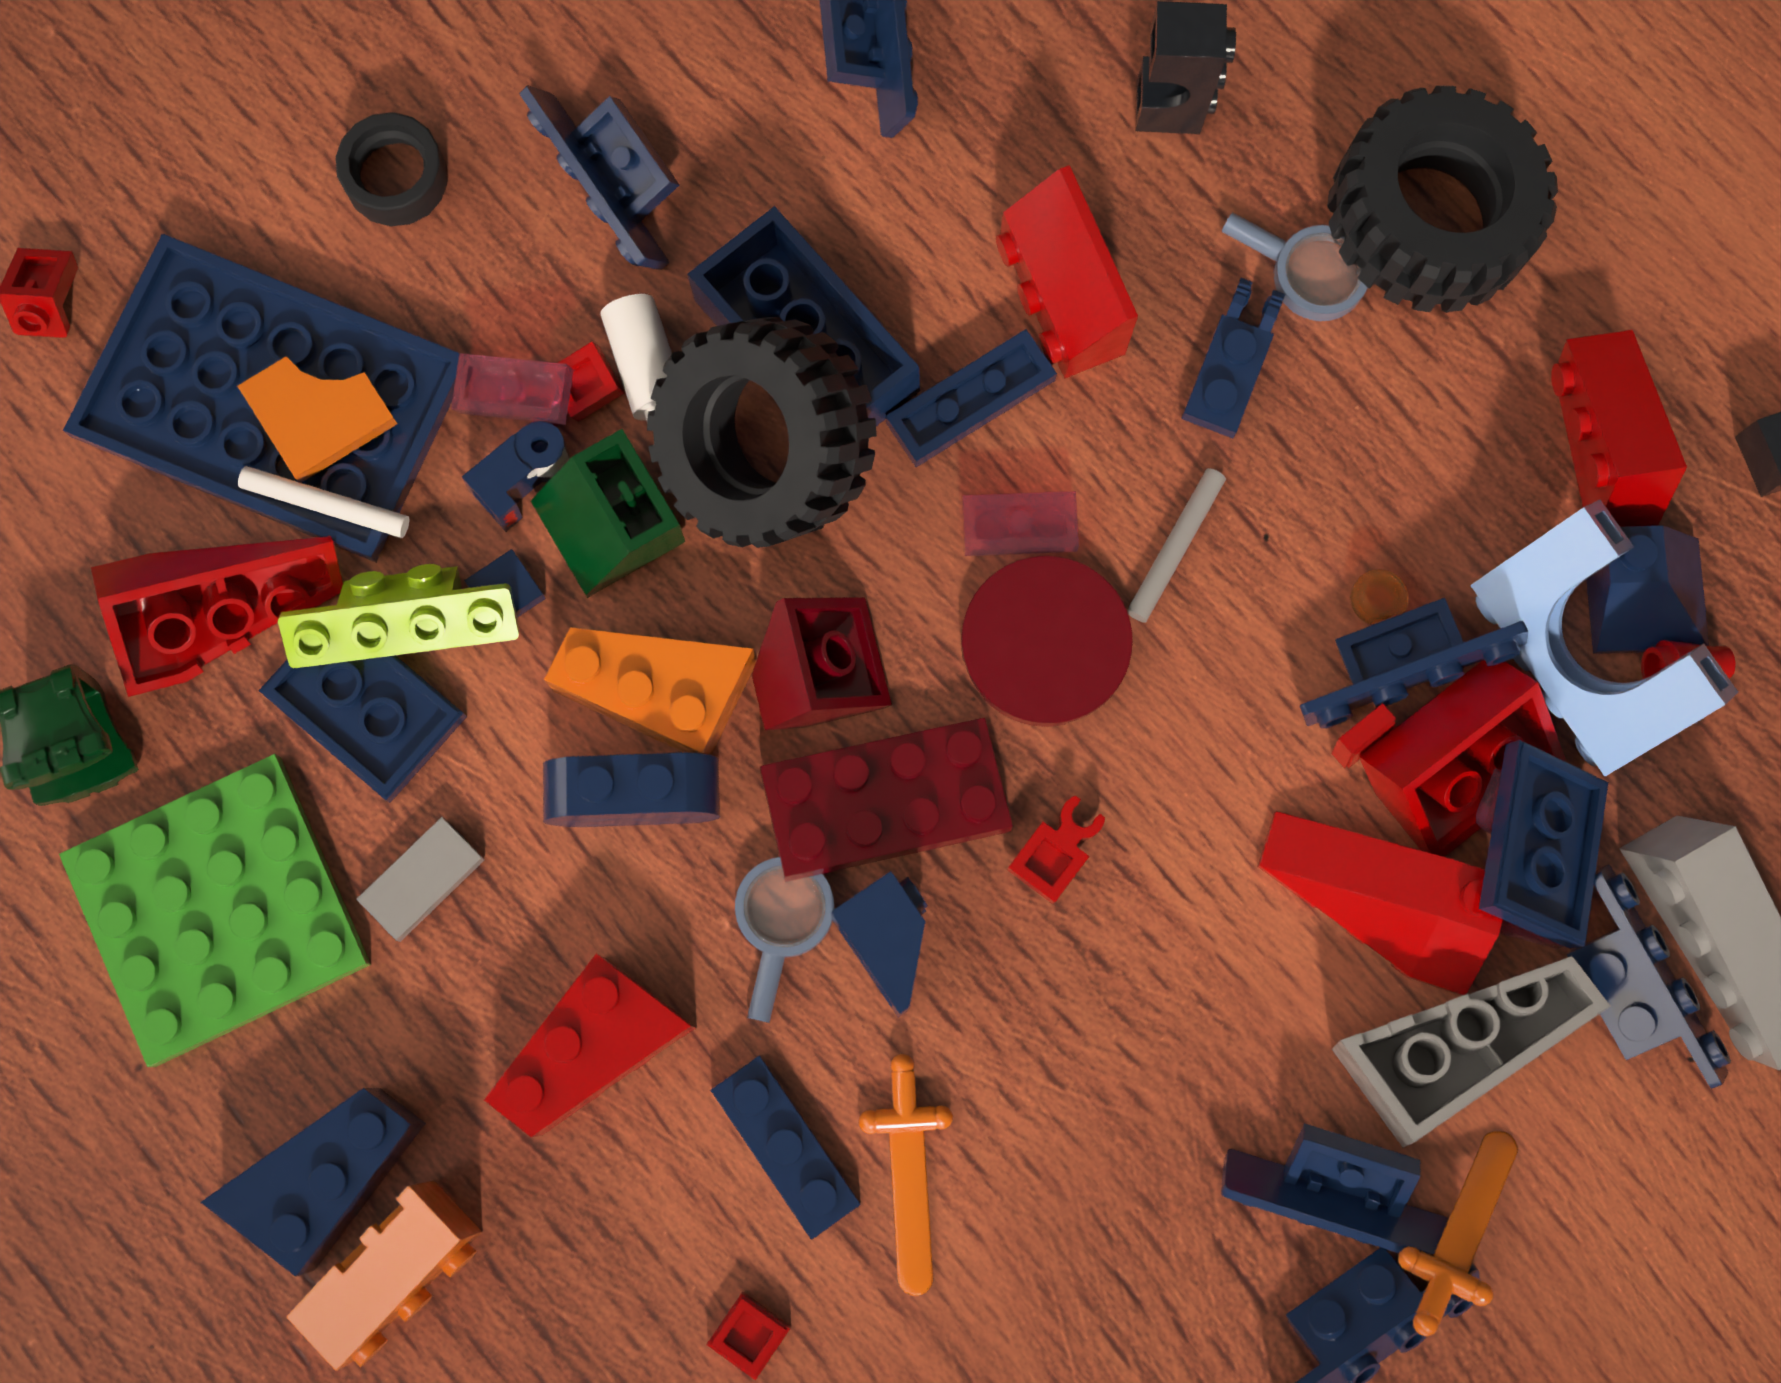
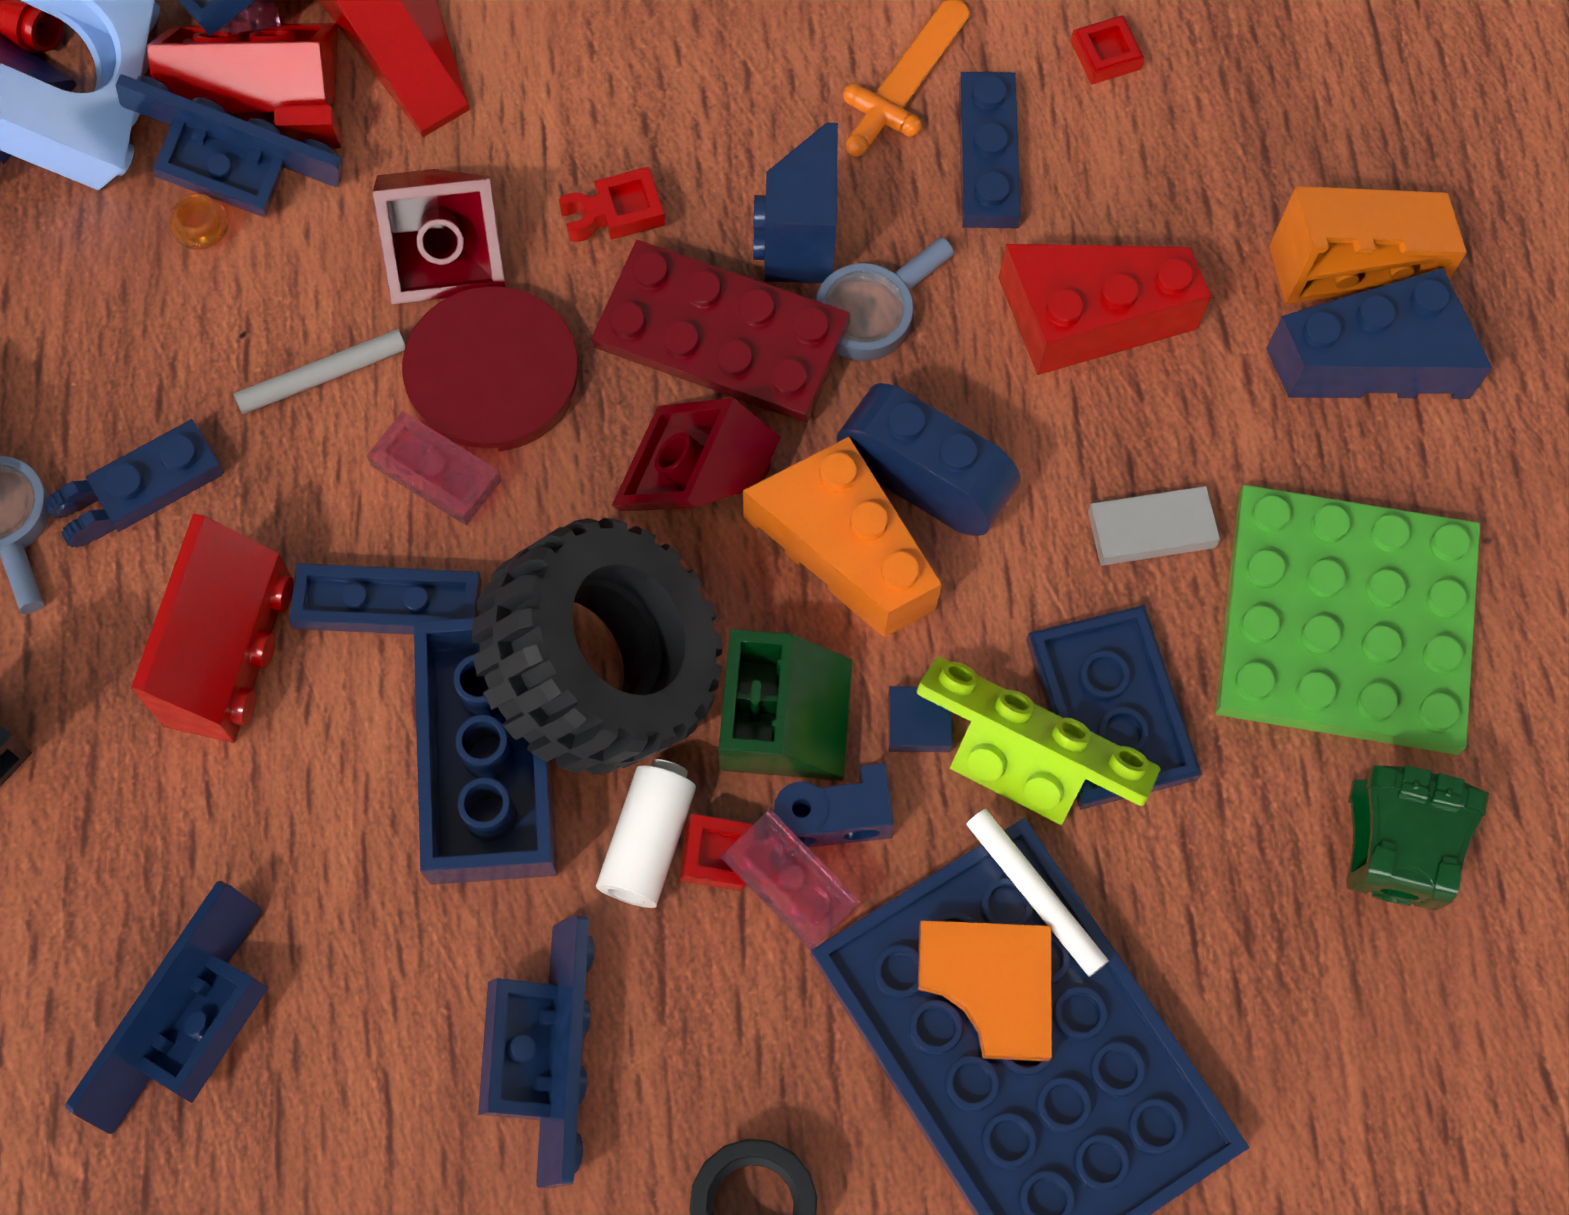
camera: 145 degrees left, 10 degrees down
(194, 605) = (1233, 897): red wedge -> none
(1181, 714) = (437, 233): none -> dark red slope

